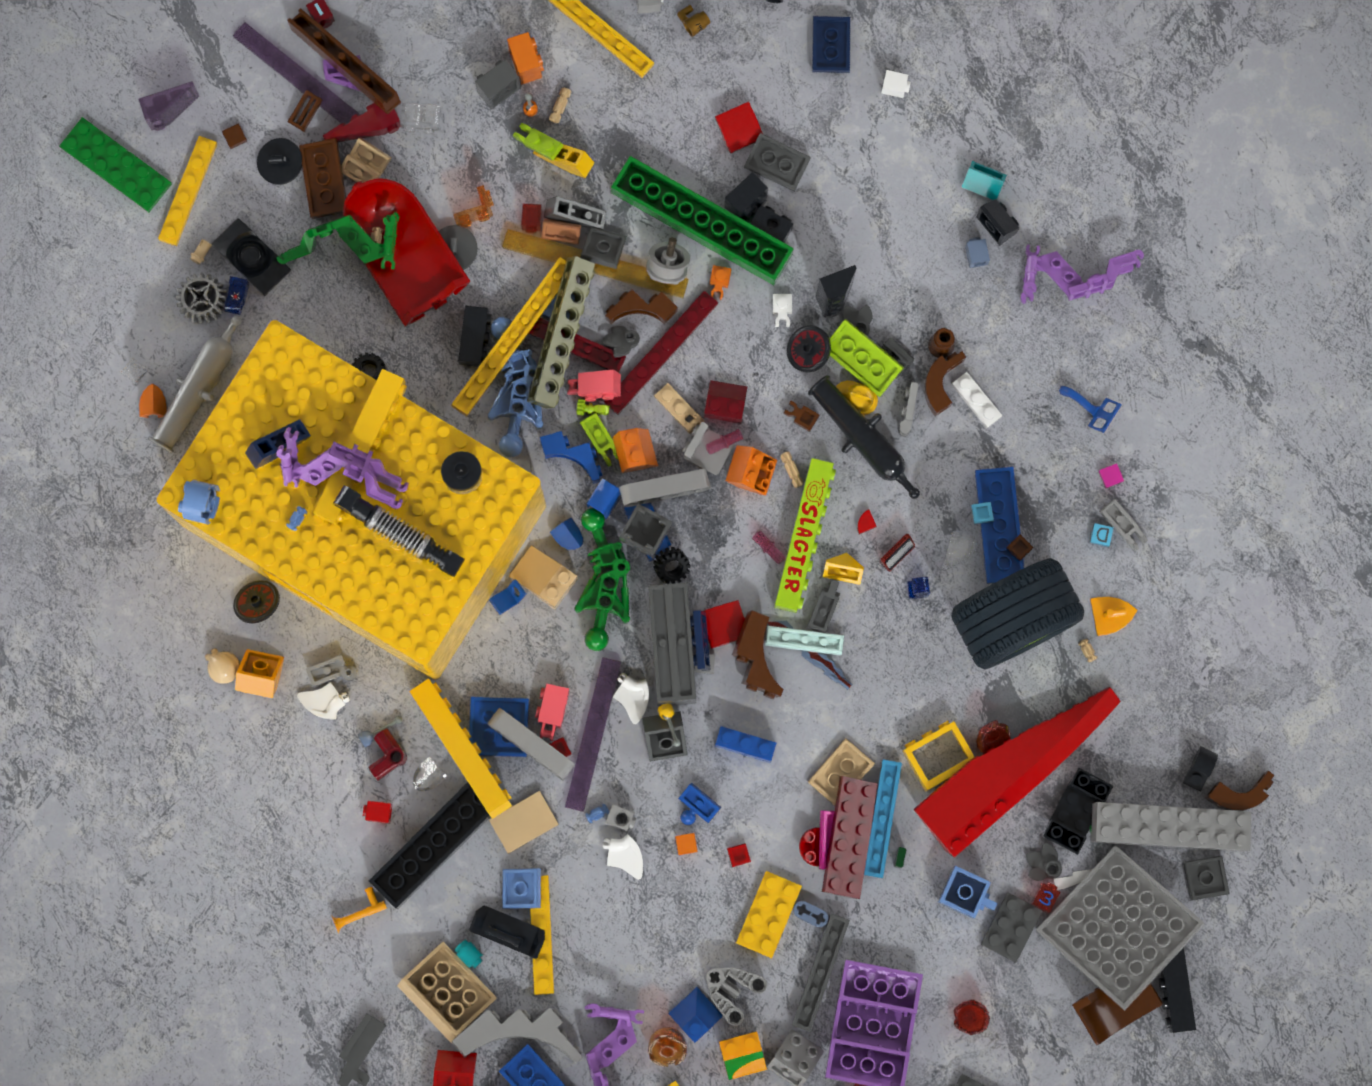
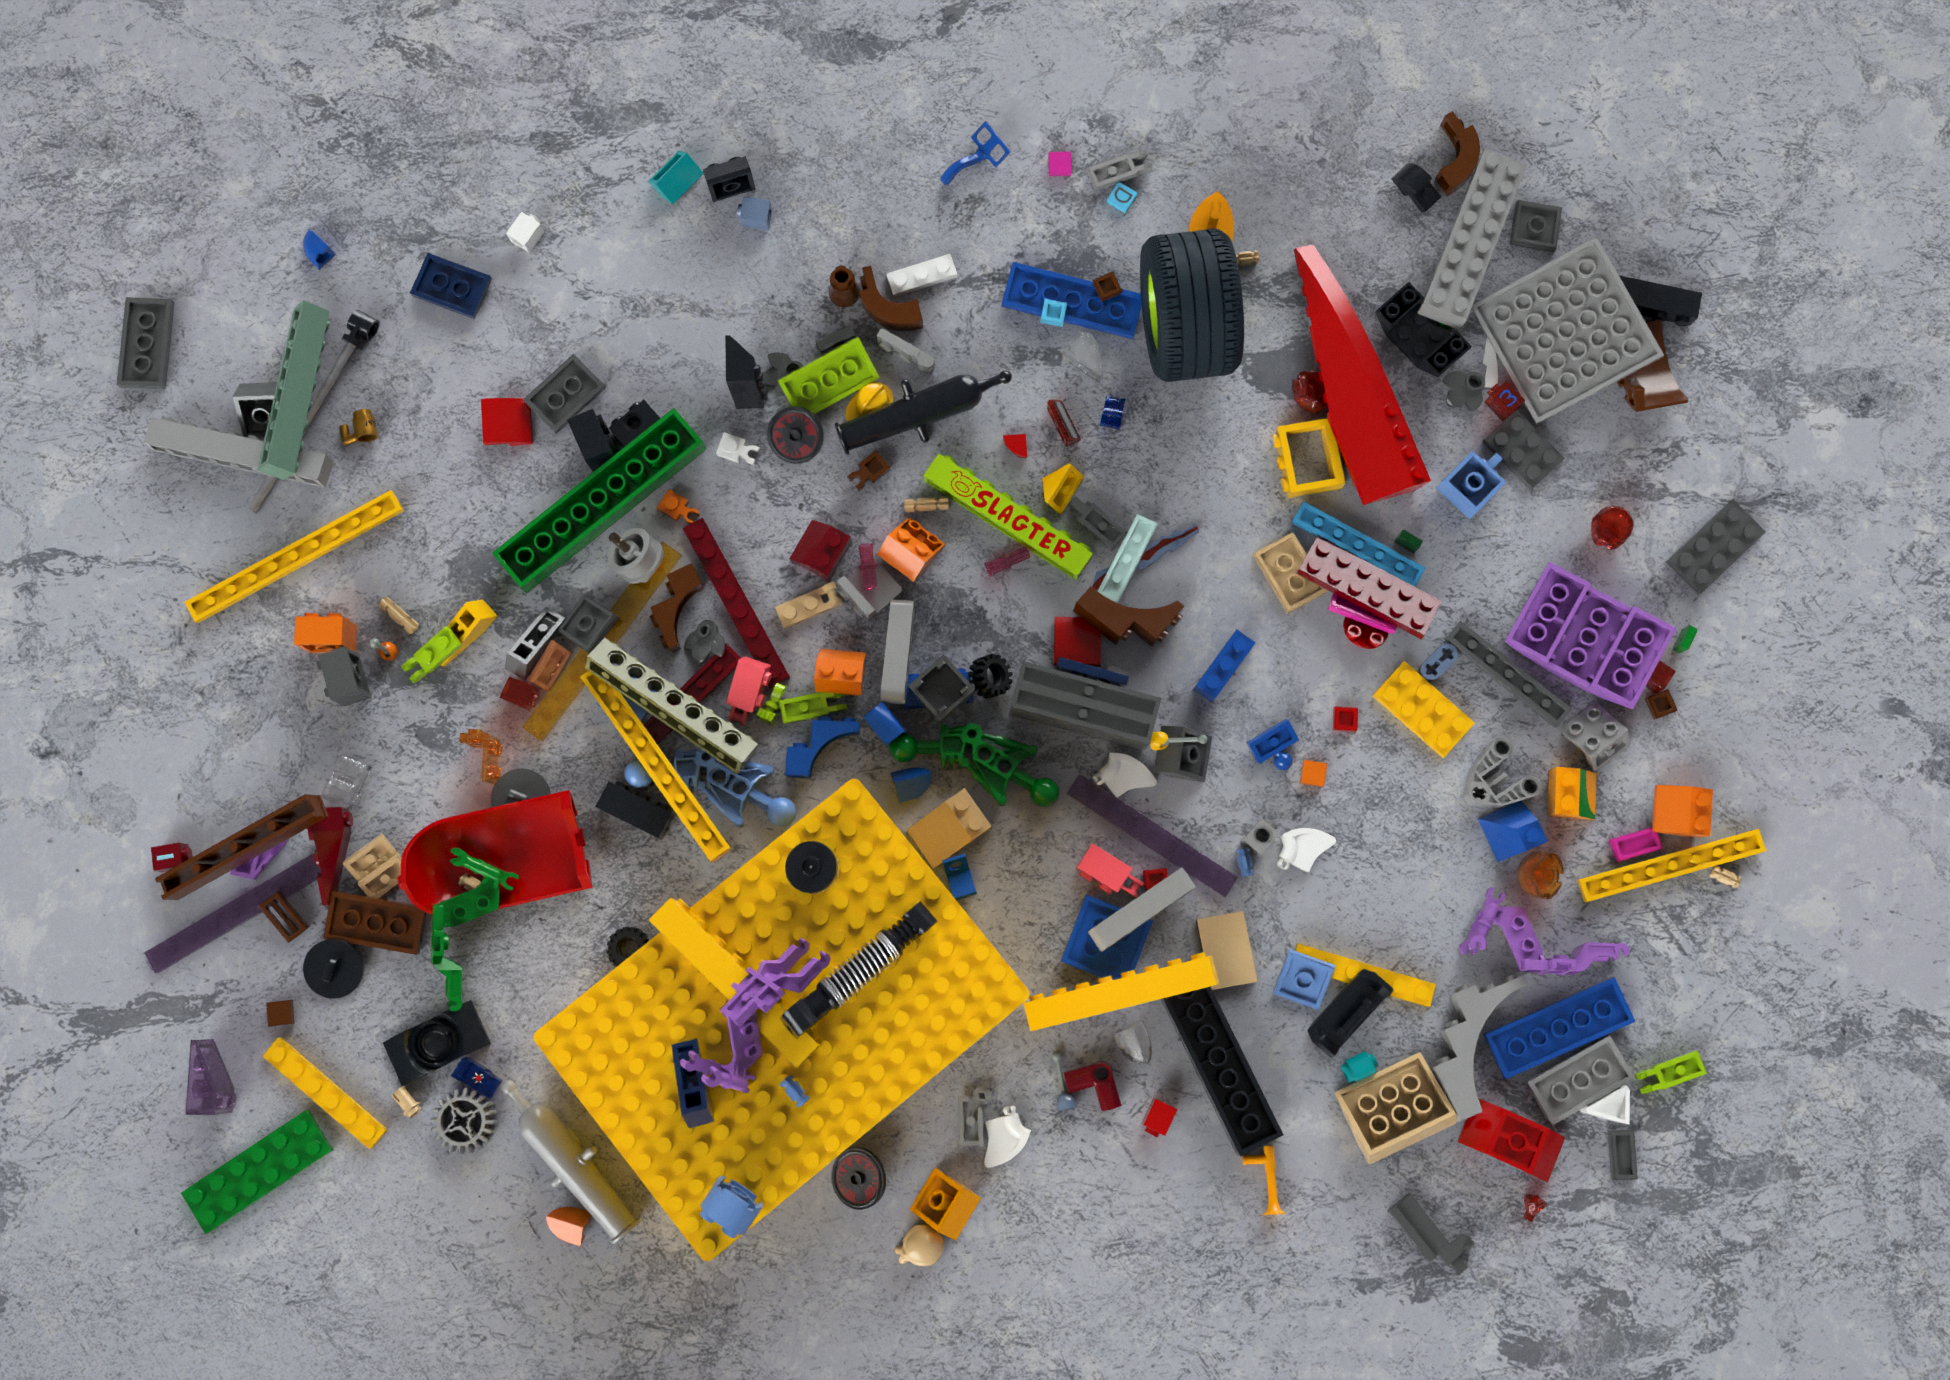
camera: 70 degrees left, 0 degrees up
(1068, 279) = (820, 126): medium lavender piece -> none

